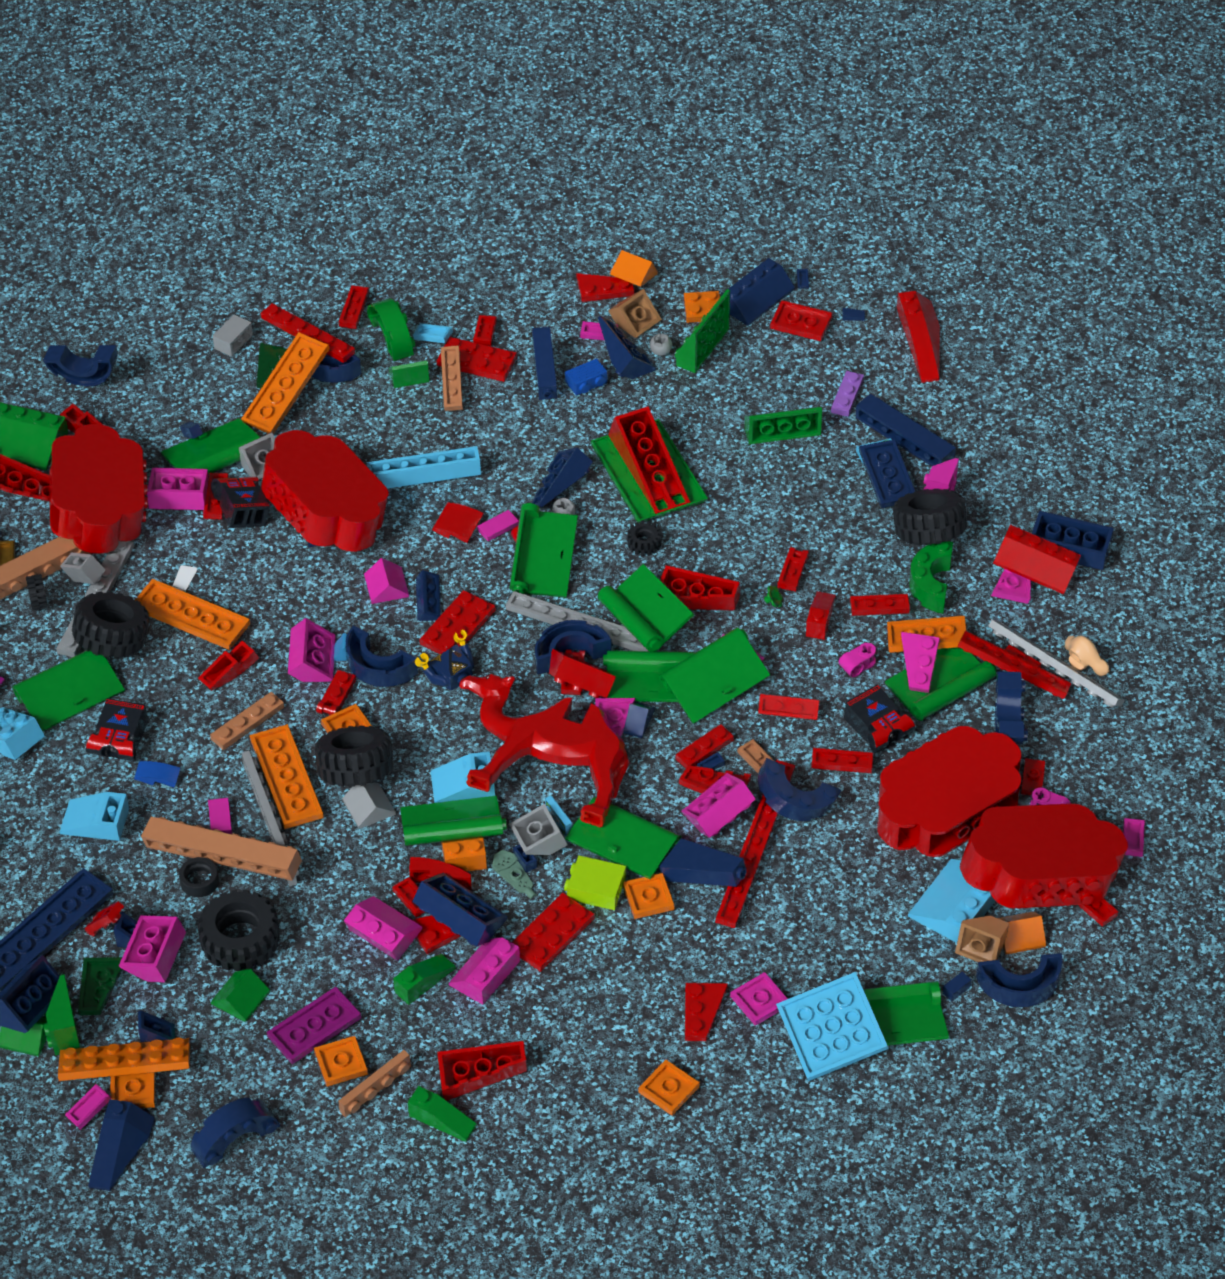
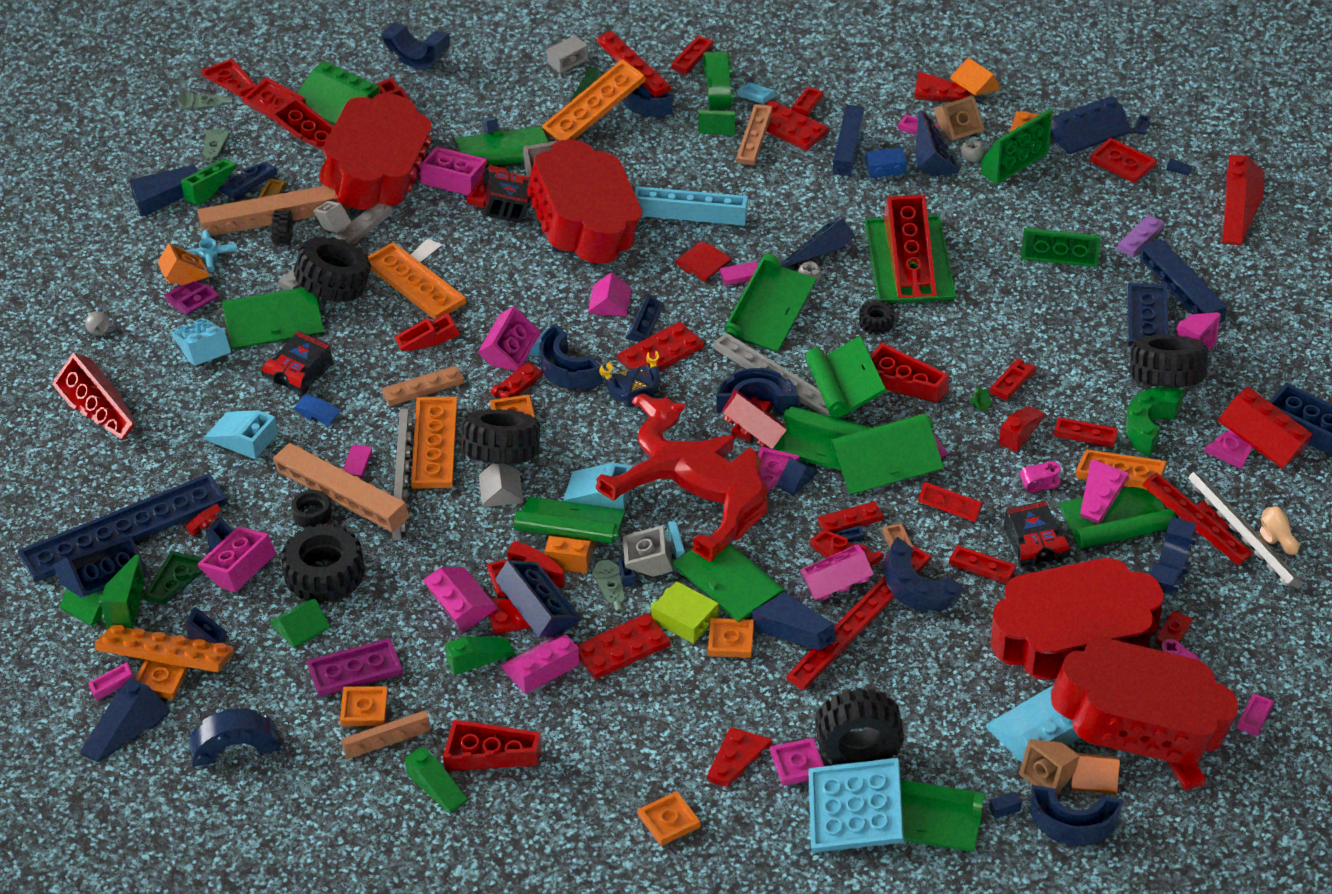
camera: 20 degrees right, 5 degrees down
(809, 954) = (855, 711): none -> black tyre

